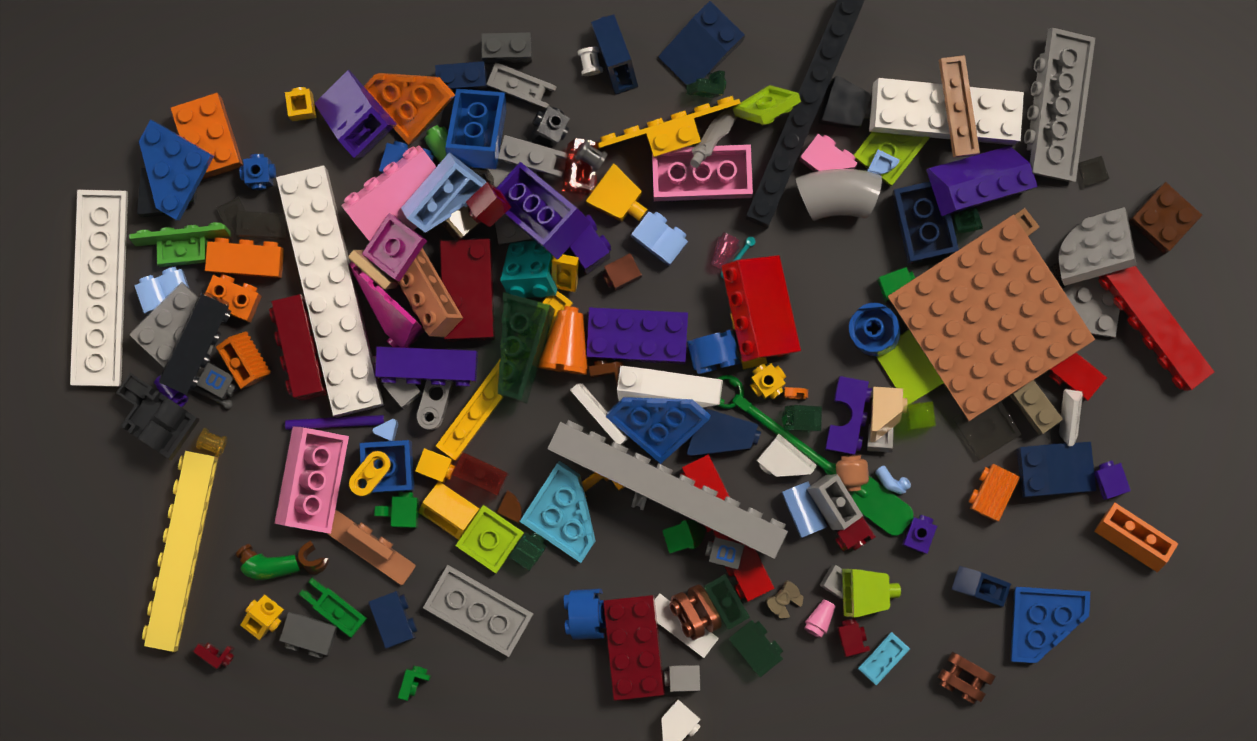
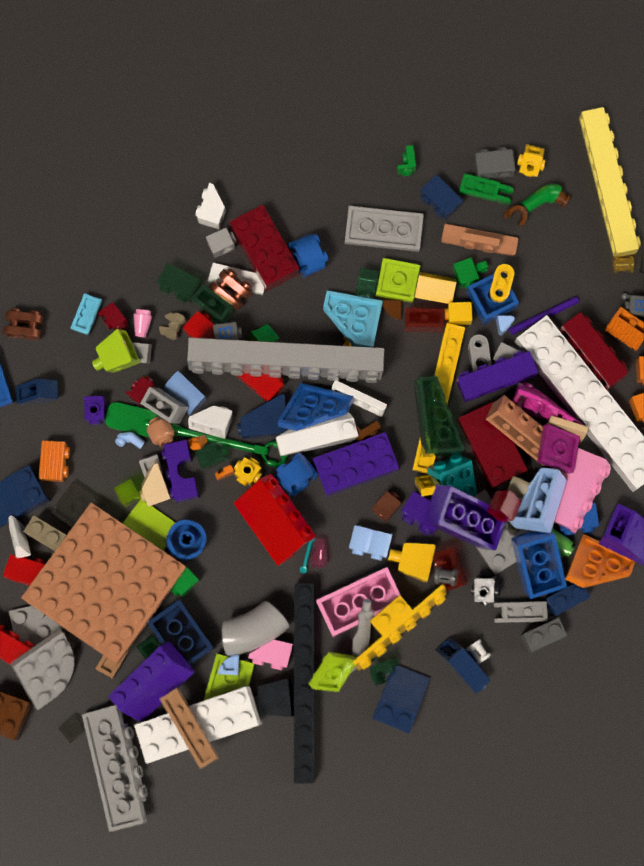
camera: 150 degrees right, 5 degrees down
(210, 654) = (554, 122): dark red bracket -> none
(311, 479) = (541, 267): bright pink slope -> none
(531, 155) = (490, 561): light grey hinge -> none
(566, 344) = (404, 435): orange cone -> none
(814, 441) = (197, 442): none -> orange tile

